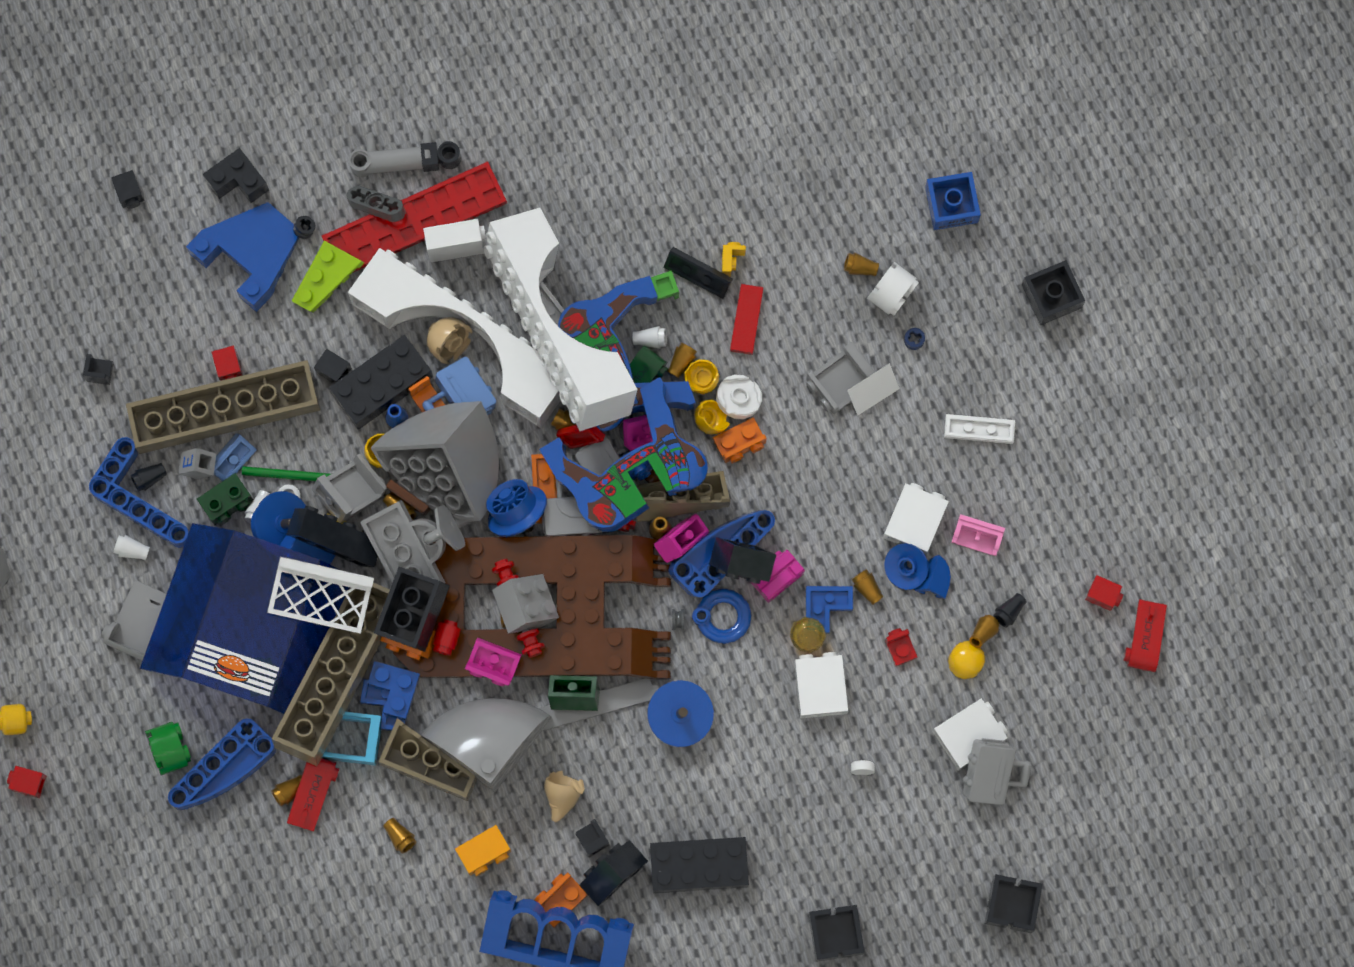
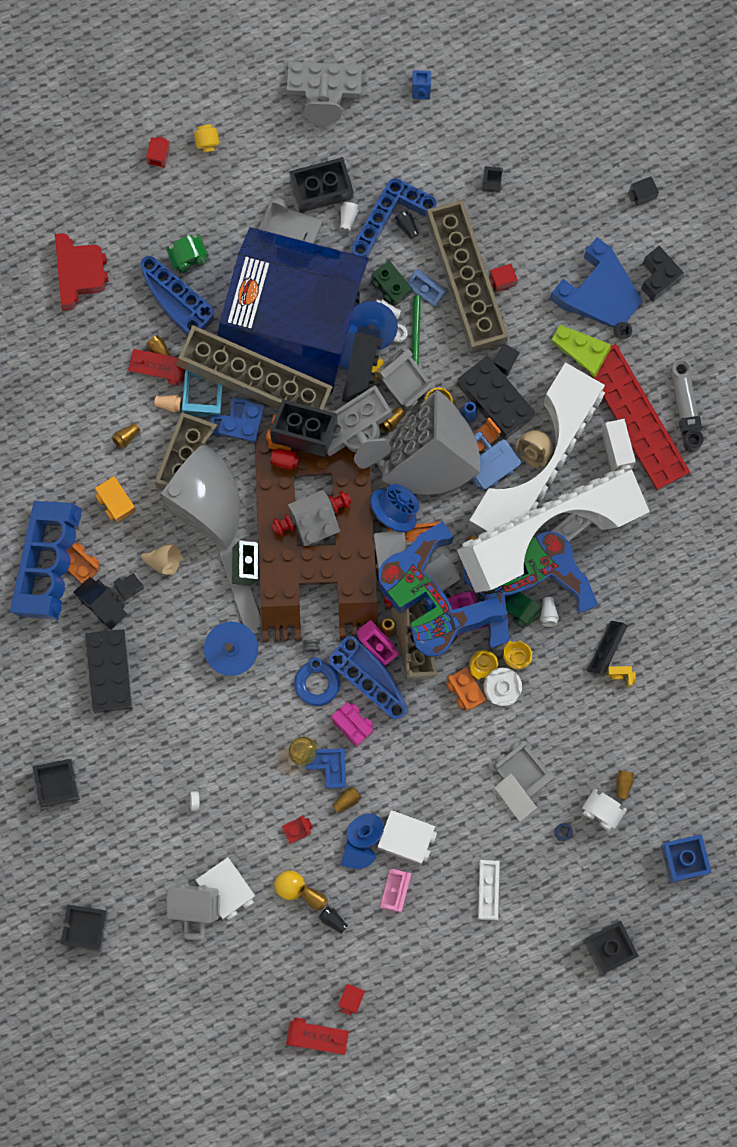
camera: 80 degrees right, 0 degrees up
(89, 578) = (321, 184): none -> black brick
(178, 888) = (79, 270): none -> red brick
(197, 463) = (418, 259): light grey brick -> none
(324, 574) = (327, 359): white fence -> none
(360, 779) = (170, 403): none -> light nougat cone
(369, 196) = (640, 388): dark grey beam -> none
(418, 505) = (400, 424): reddish brown tile -> none
(493, 662) = (265, 496): dark pink bracket -> none
(574, 438) = (458, 566): red tile -> none
(665, 286) = (592, 620): bright green panel -> none
(681, 359) = (532, 638): pearl gold cone -> none
(742, 560) = (358, 690): black brick -> none
(746, 319) = (571, 691): red tile -> none
(821, 685) = (261, 764): white brick -> none

